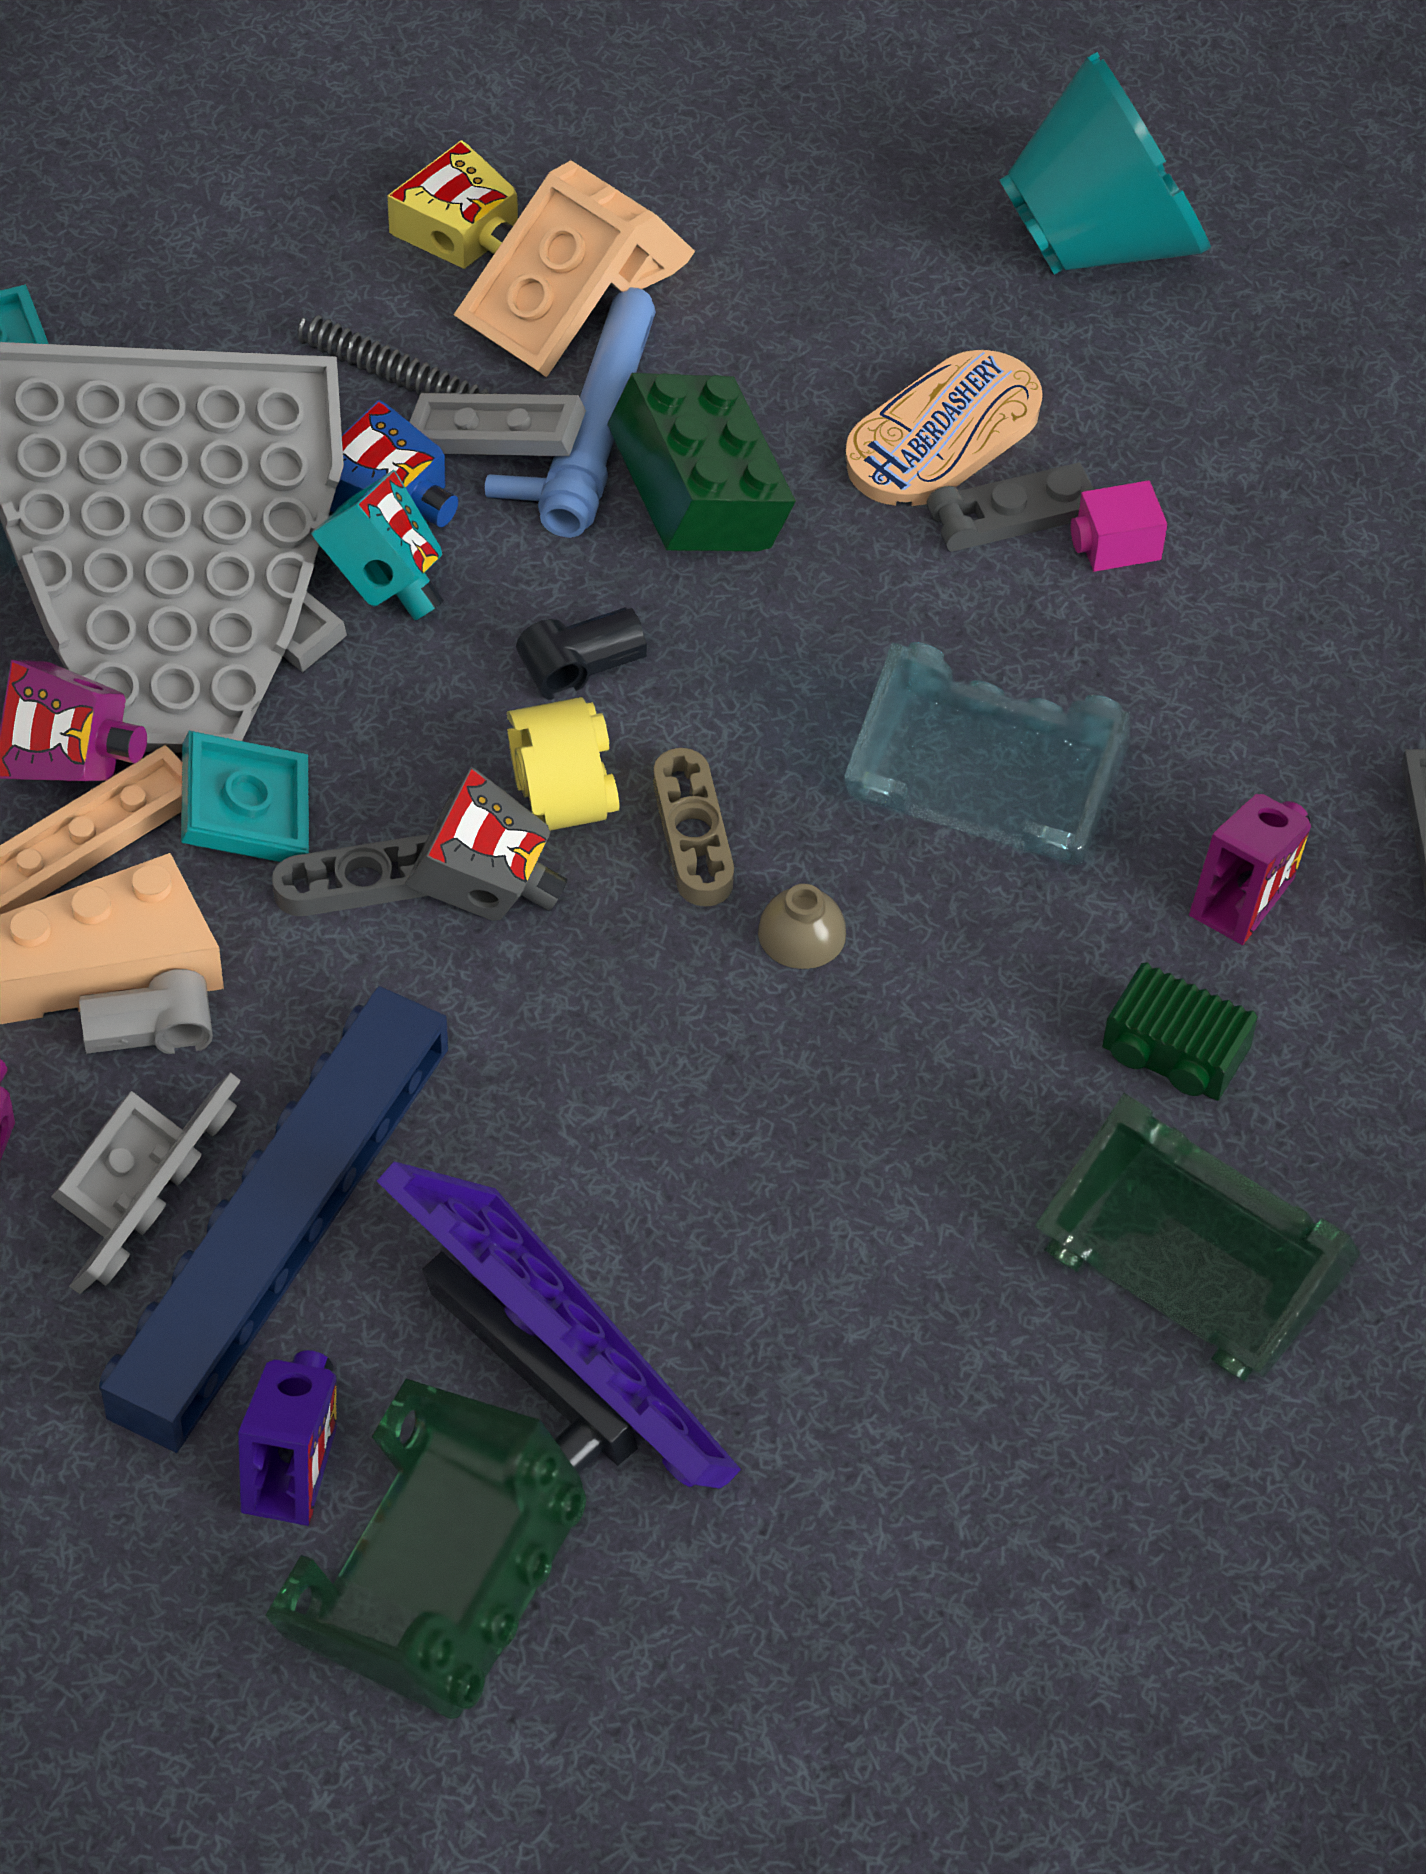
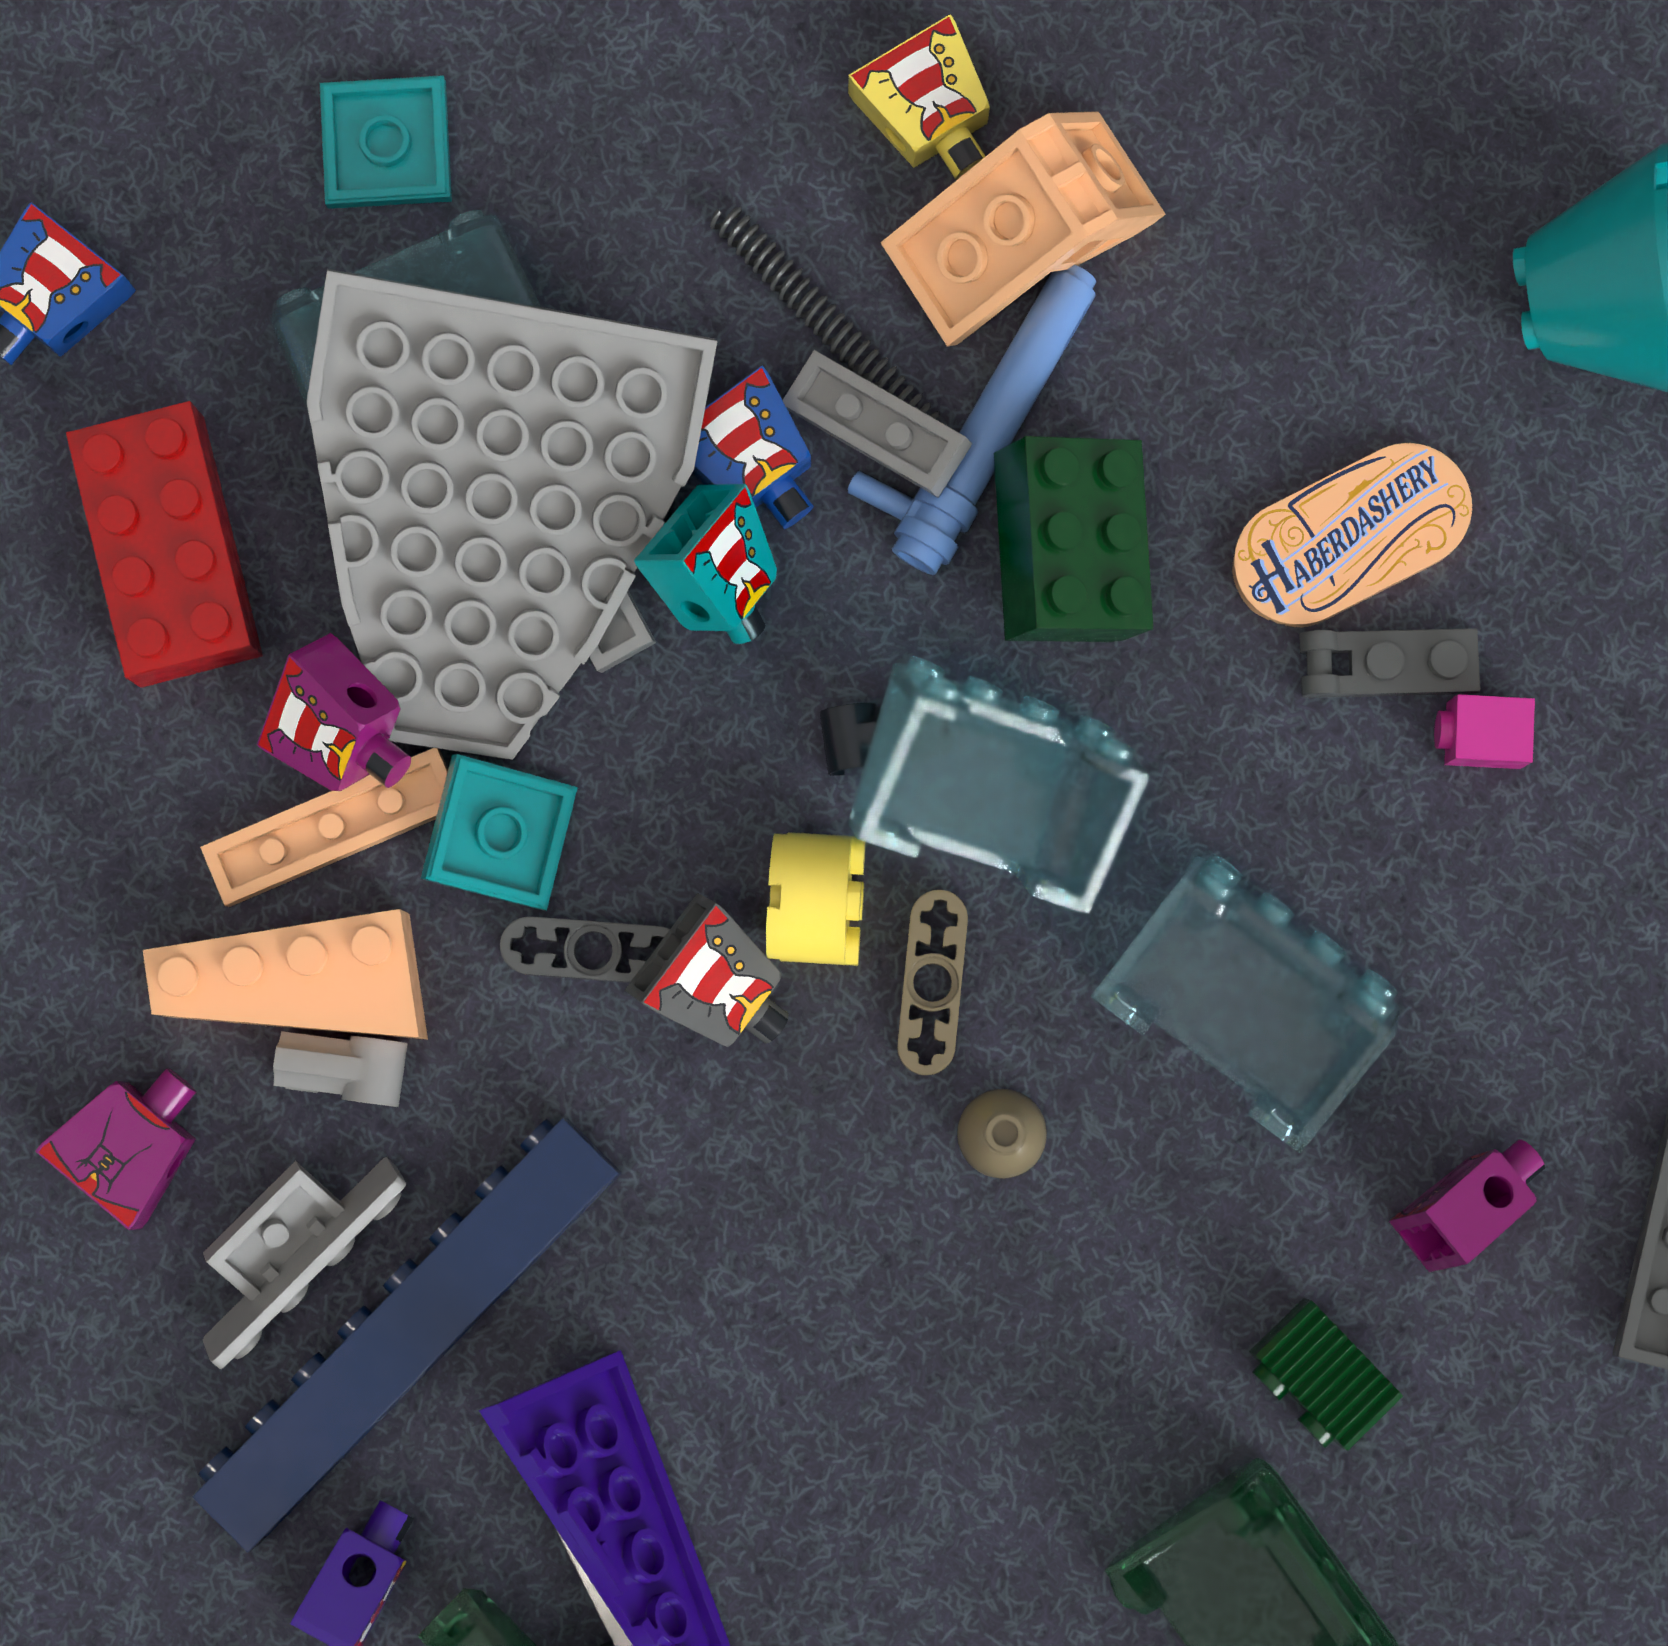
camera: 20 degrees right, 30 degrees up
(698, 641) = (996, 783): none -> clear light blue windscreen

